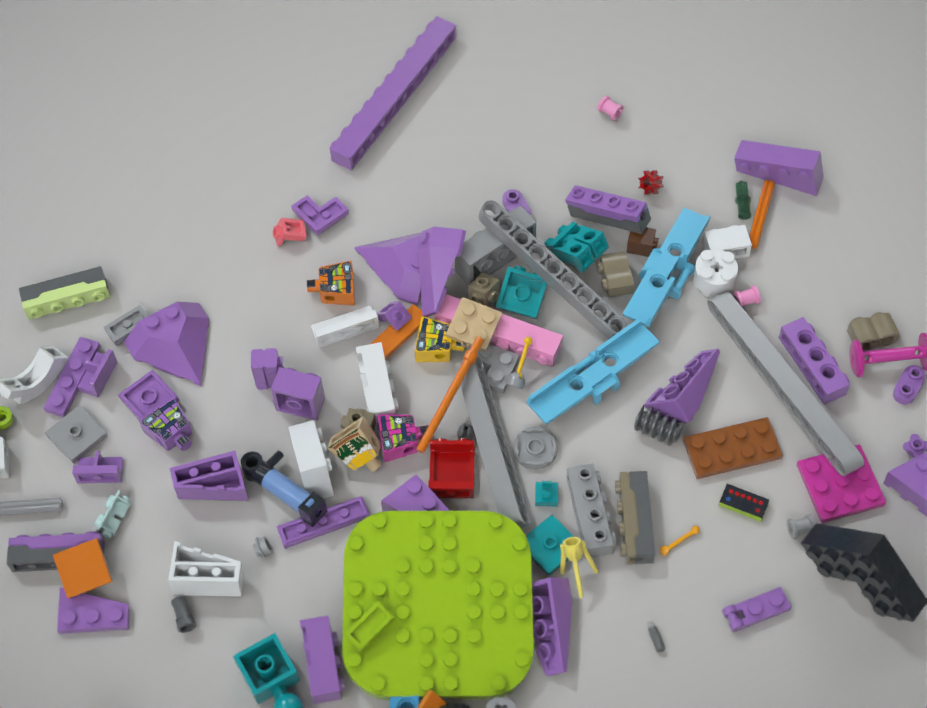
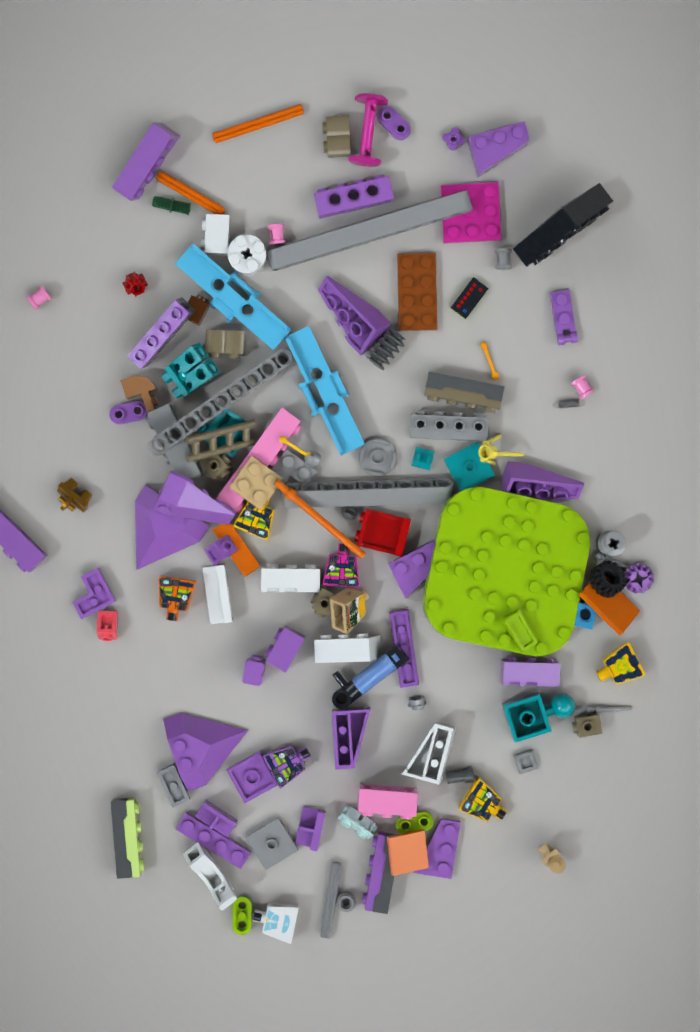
camera: 80 degrees left, 30 degrees up
(12, 519) = (346, 908): none -> light grey plate
(121, 575) = (414, 823): none -> lime plate
(141, 534) = (387, 800): none -> bright pink brick
(156, 644) = (482, 802): none -> torso
(212, 686) = (525, 761): none -> light grey tile
(423, 169) = (67, 490): none -> pearl gold hips
(513, 267) = (212, 436): none -> dark tan bar
(544, 207) = (140, 385): none -> medium nougat brick
(681, 647) = (582, 387): none -> bright pink bush
(857, 258) = (258, 123): none -> orange axle

